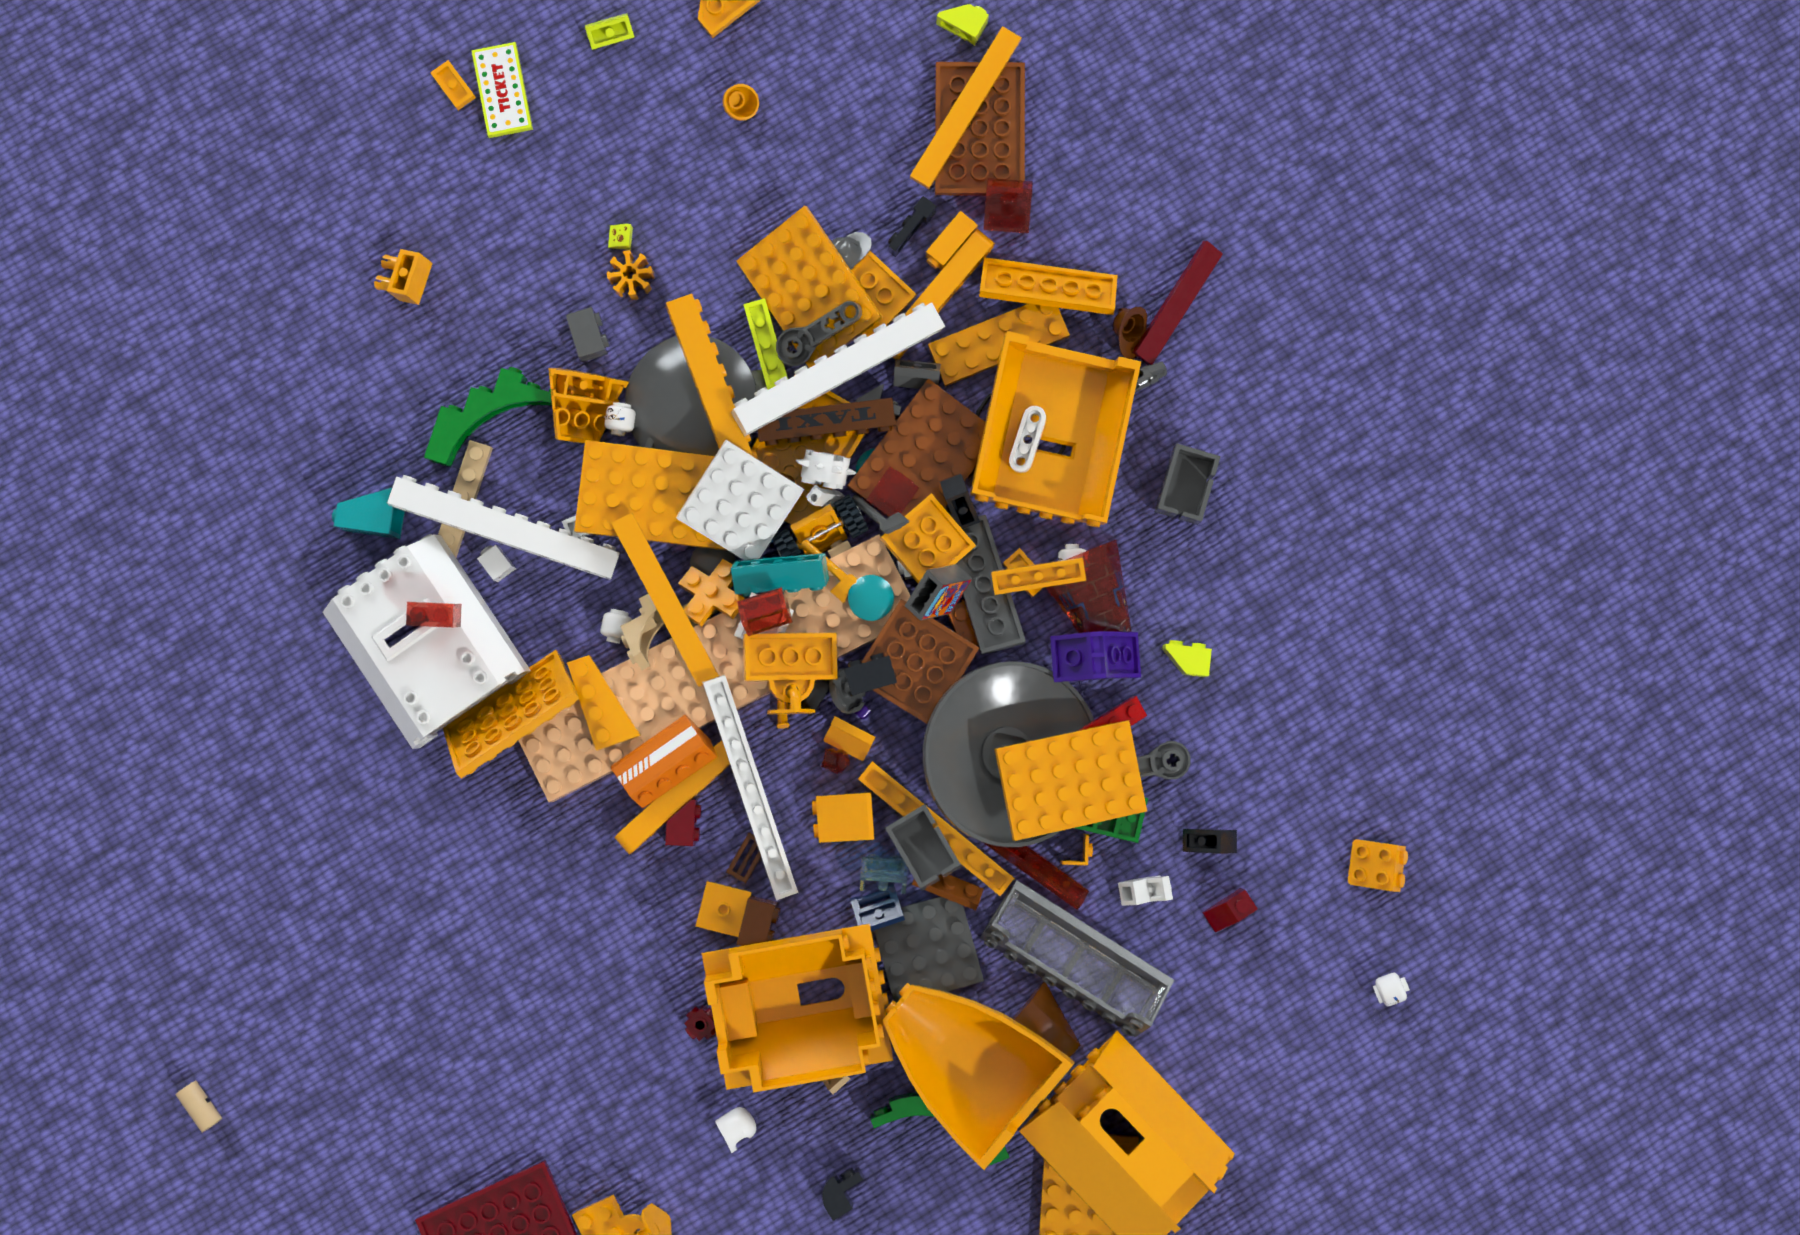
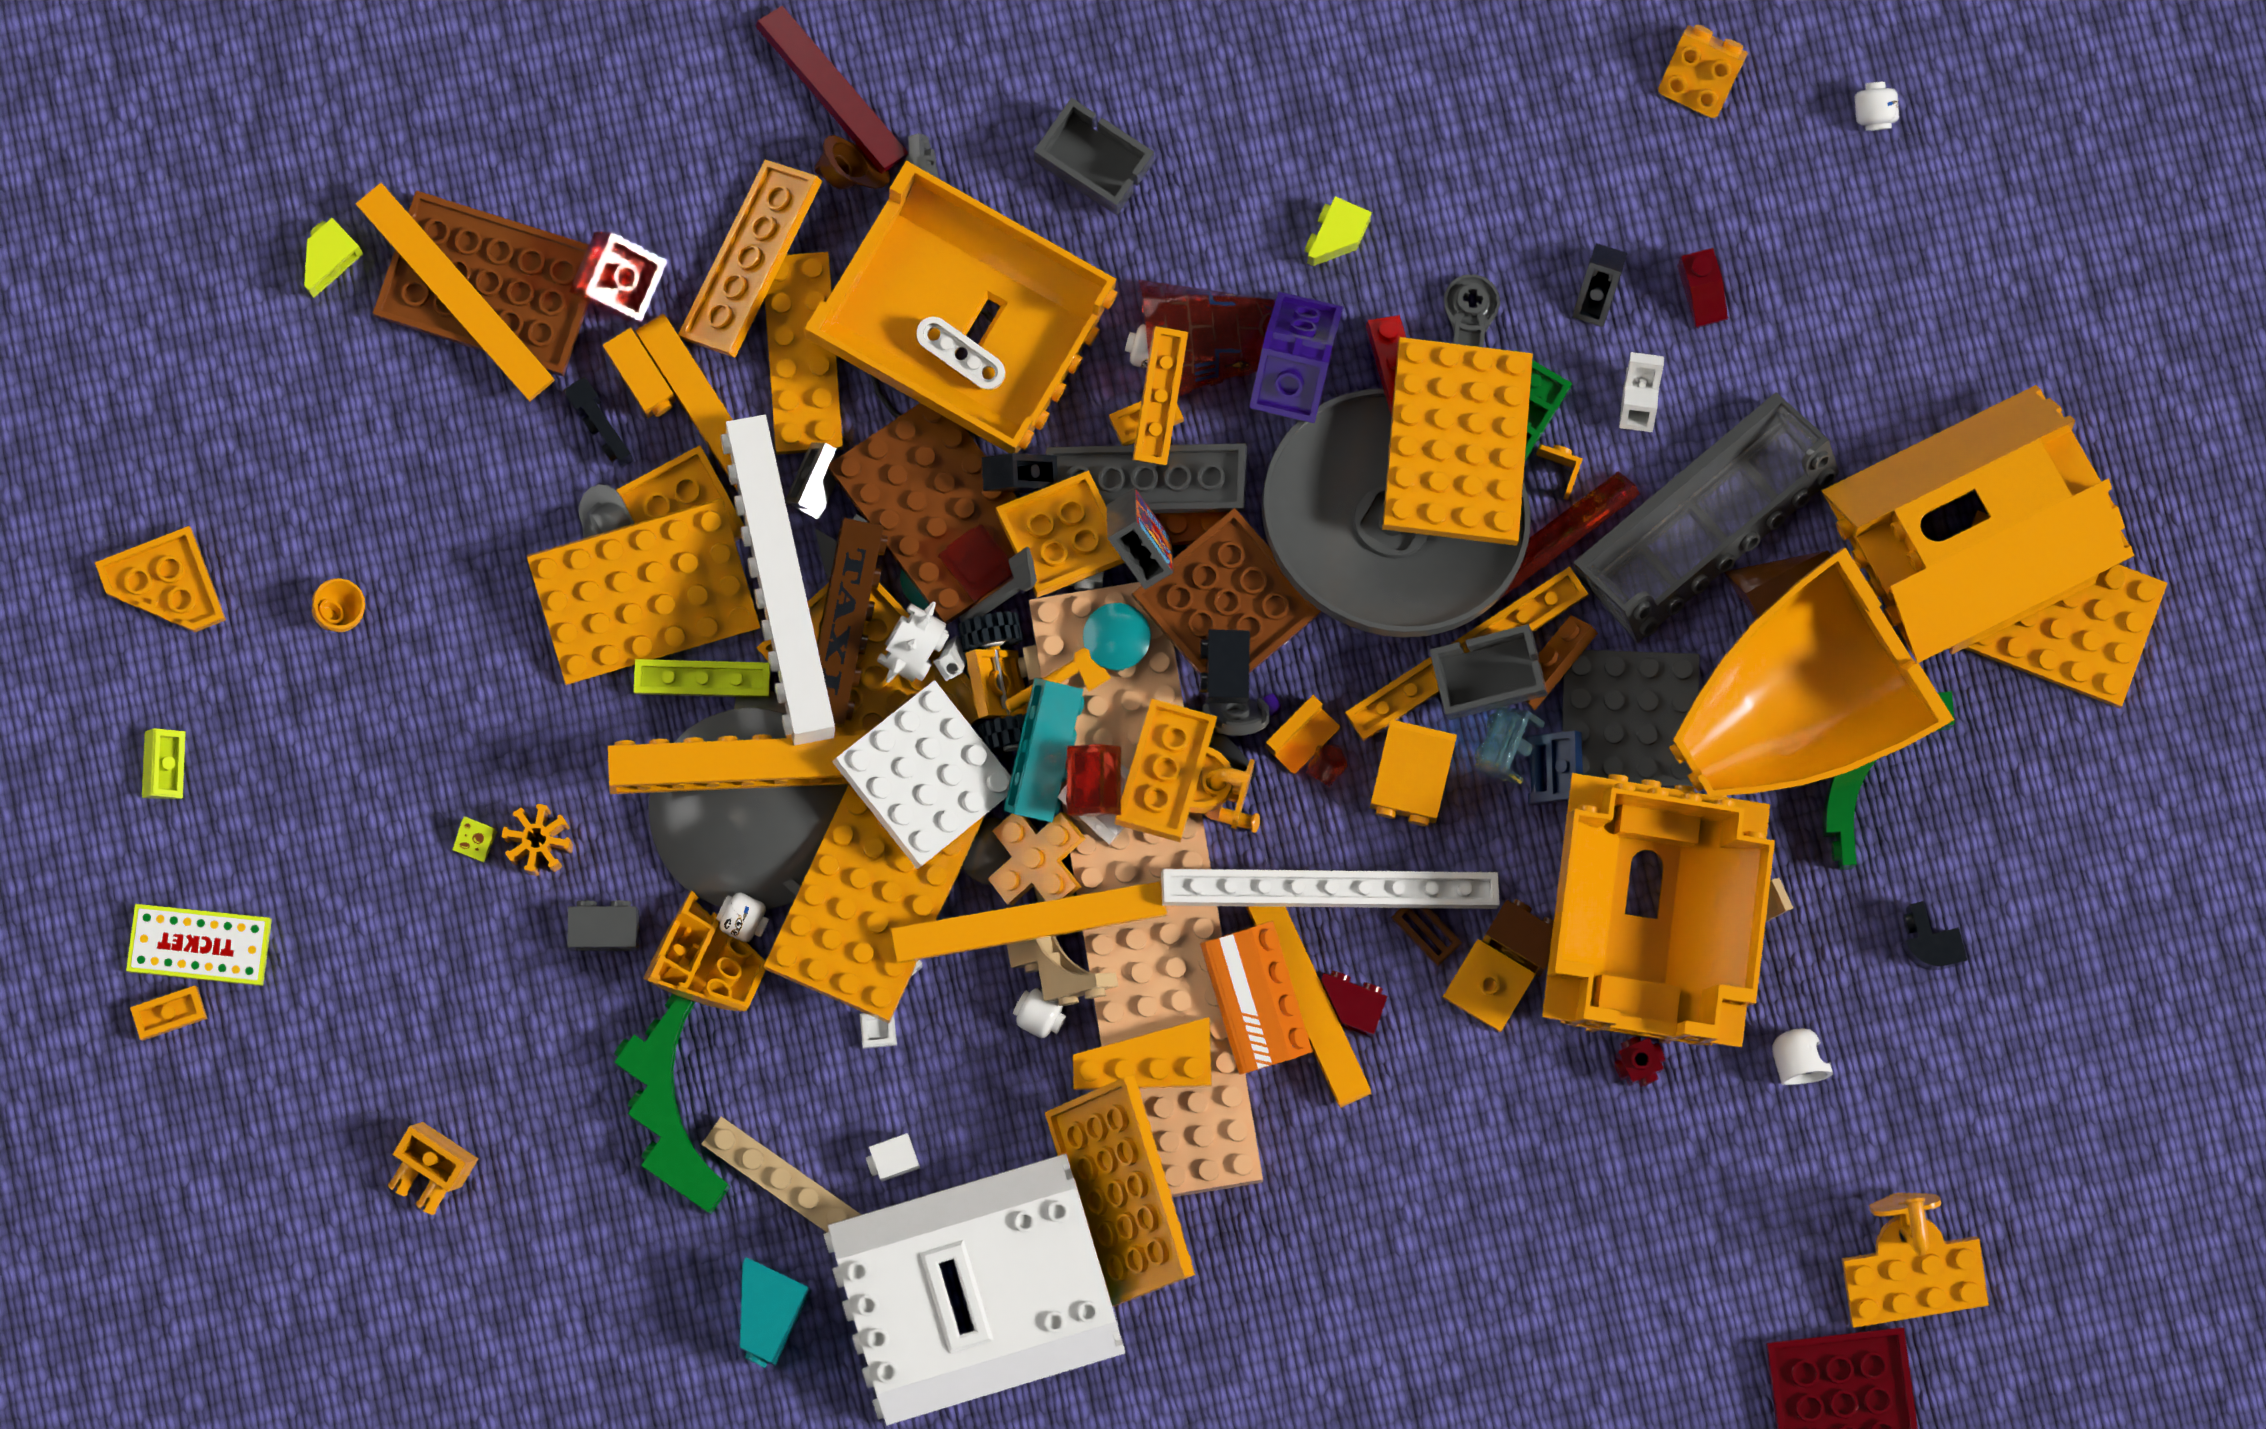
camera: 70 degrees left, 5 degrees down
(433, 614) = (949, 1244): clear red brick -> none
(503, 528) = (851, 1123): white brick -> none
(813, 335) = (715, 607): dark grey beam -> none

